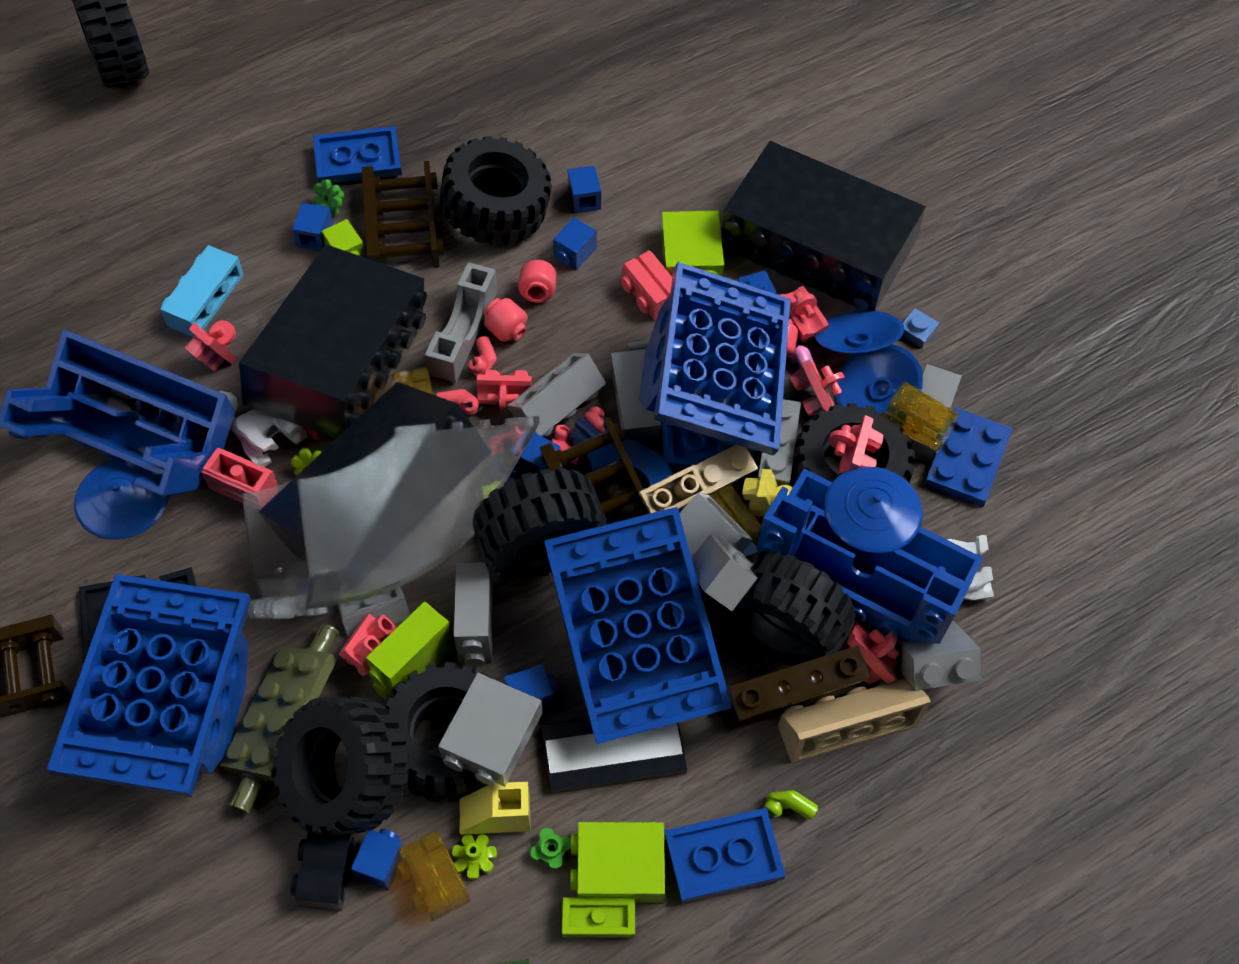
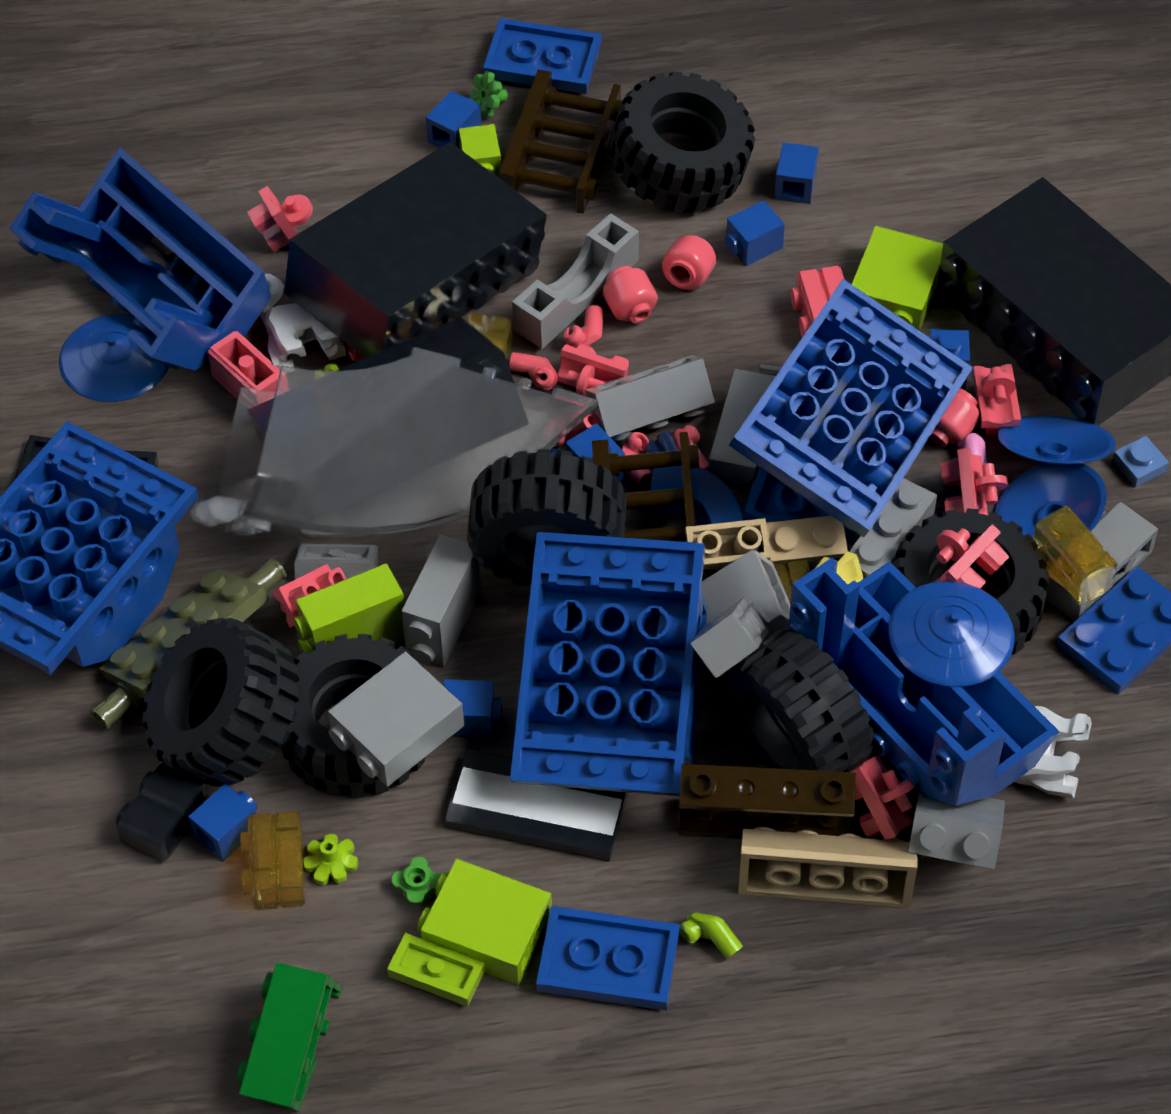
camera: 25 degrees right, 5 degrees down
(202, 290) = (298, 156): medium azure brick -> none
(496, 809) = (376, 816): light yellow slope -> none

